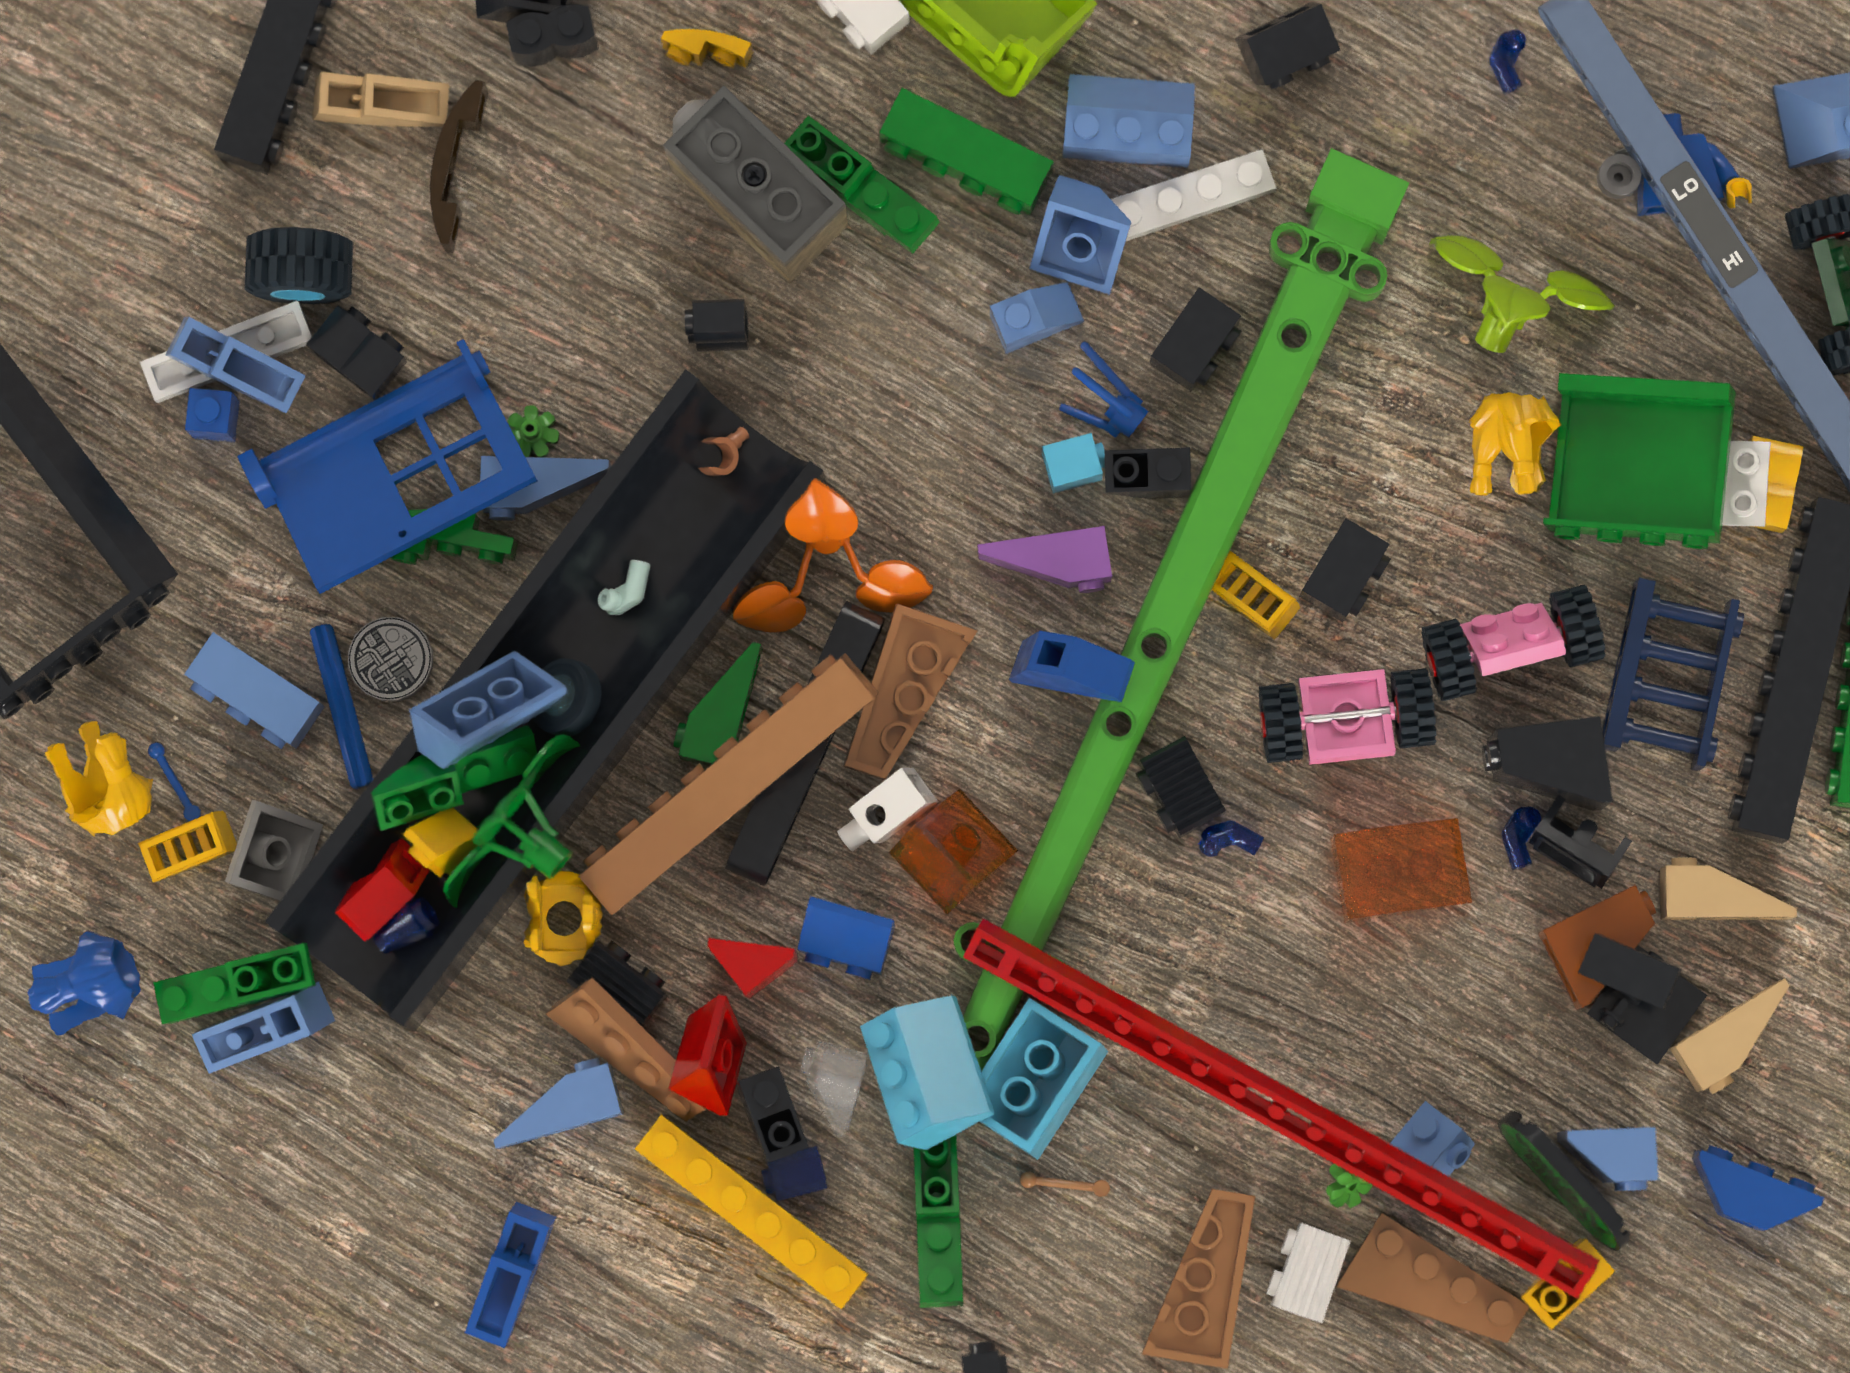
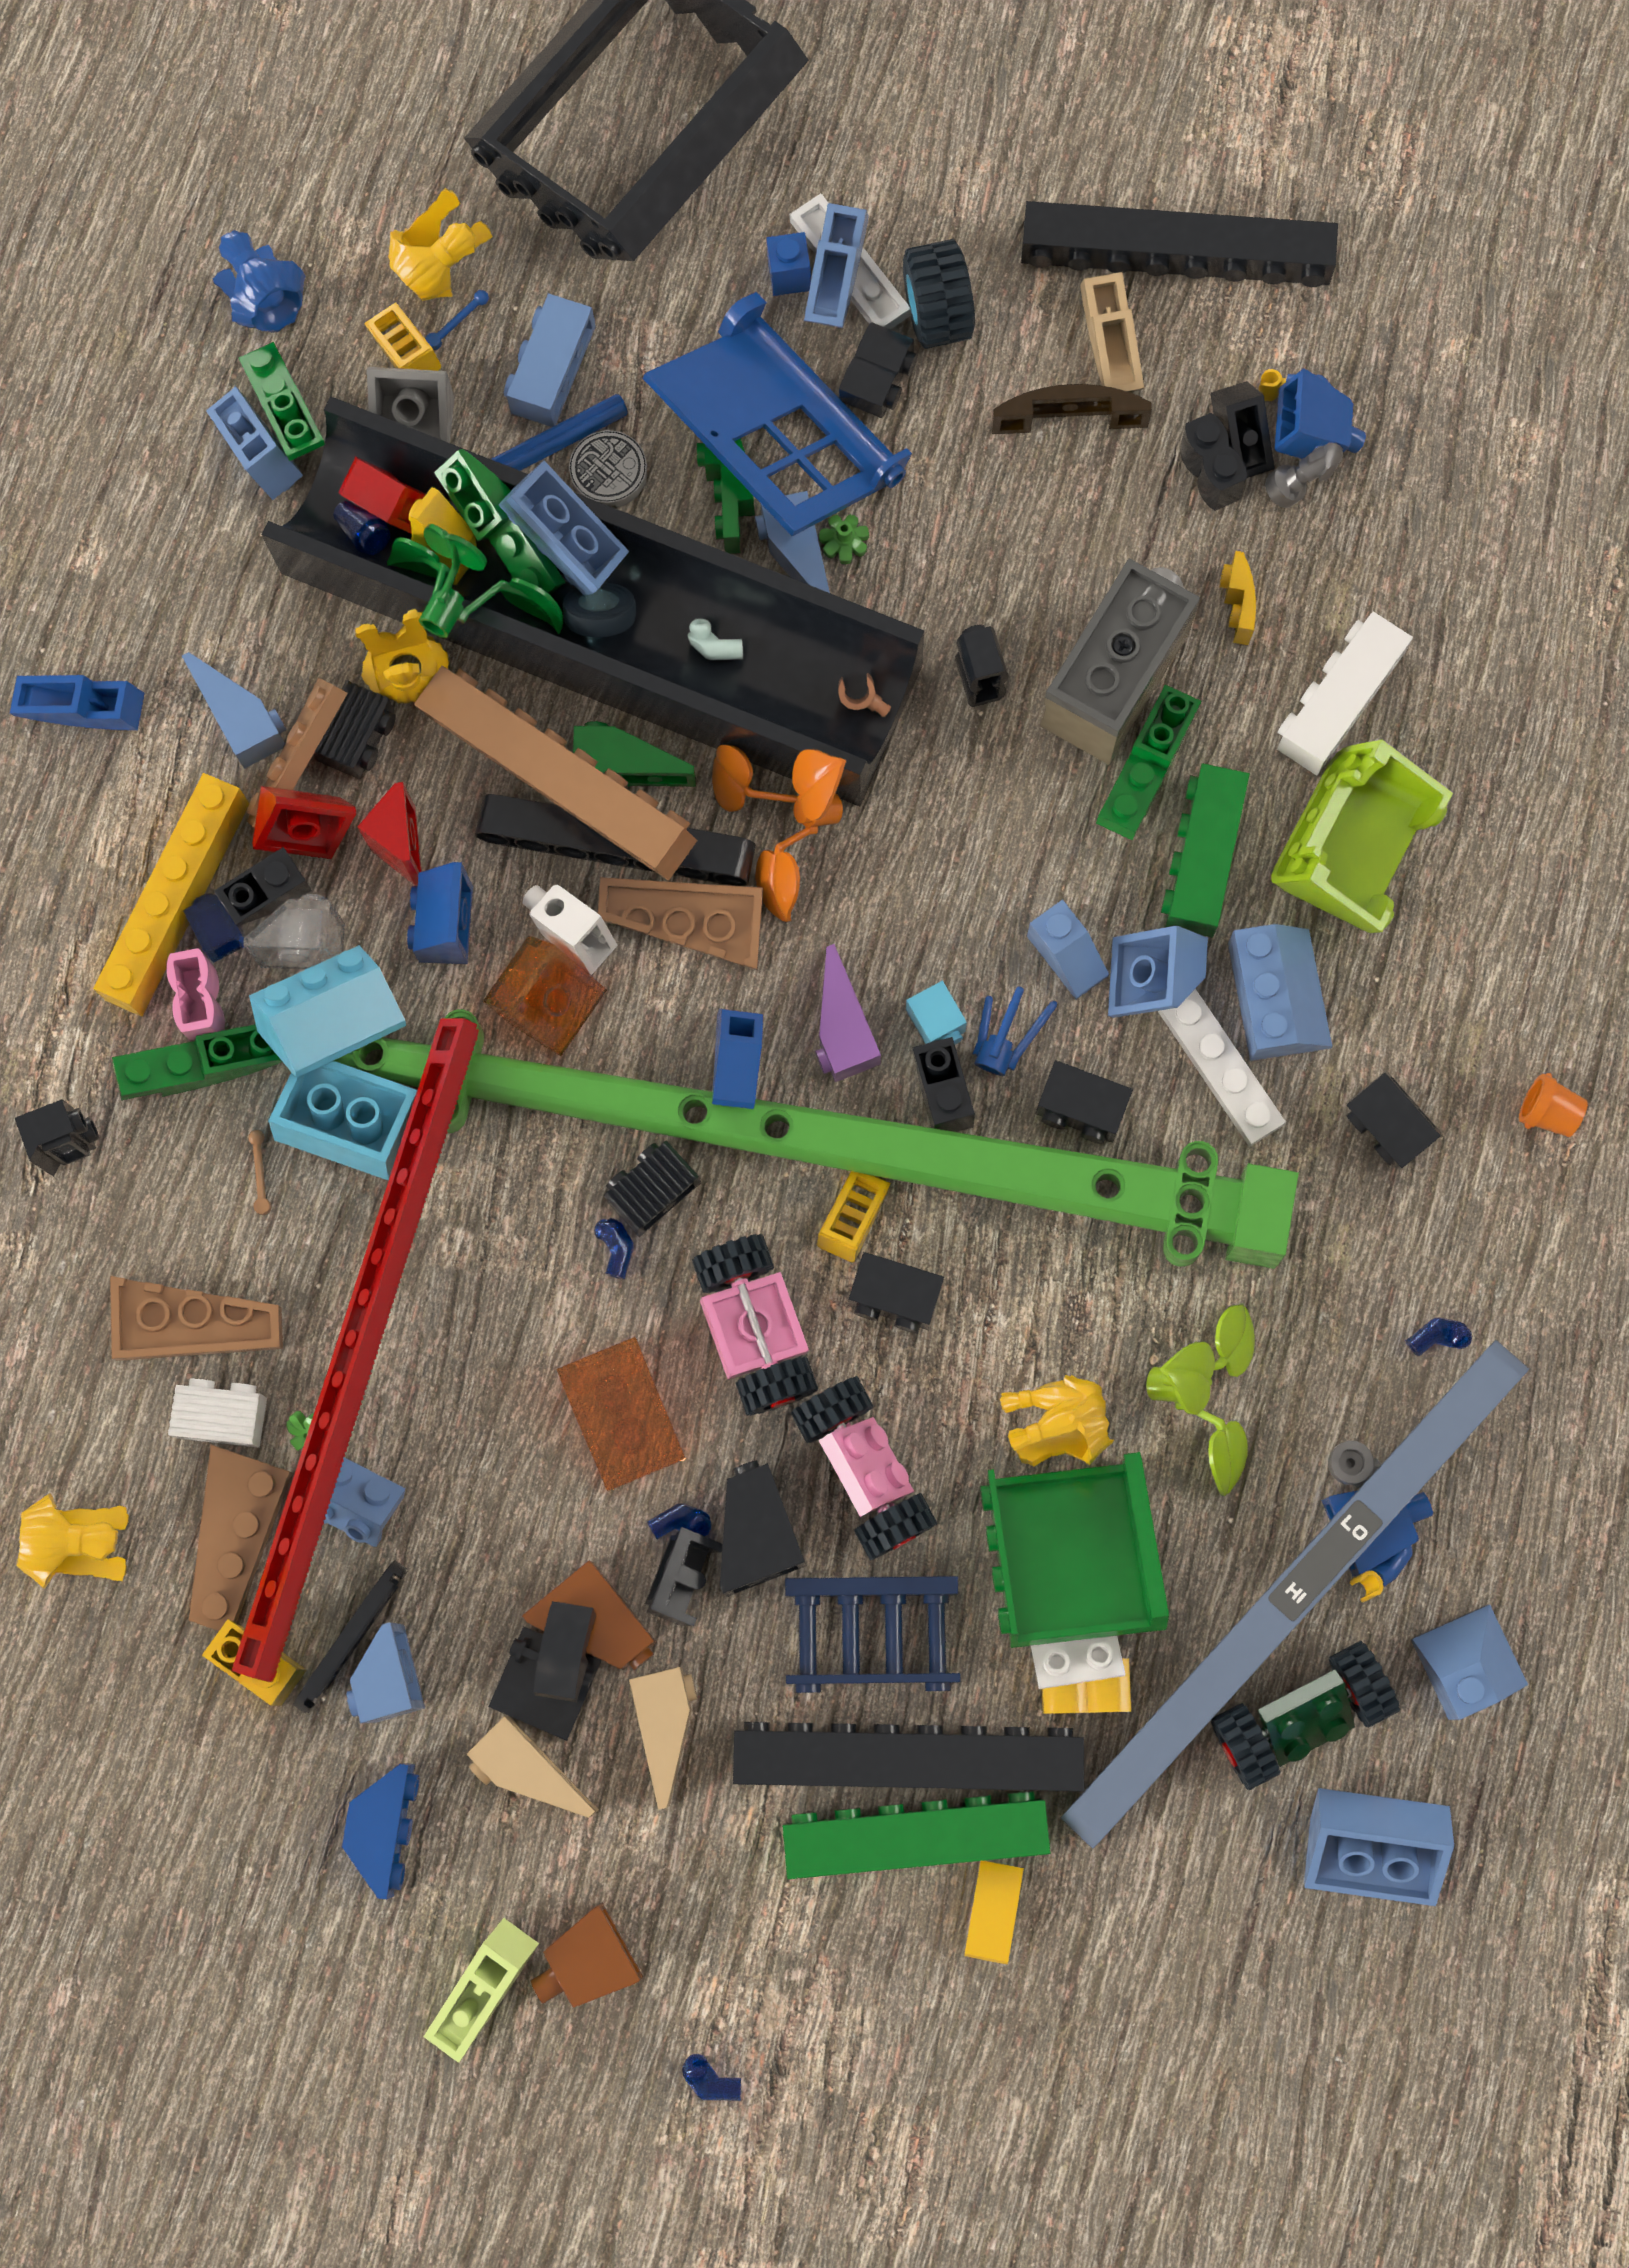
camera: 75 degrees right, 5 degrees down
(884, 1207) = (196, 993): none -> bright pink brick

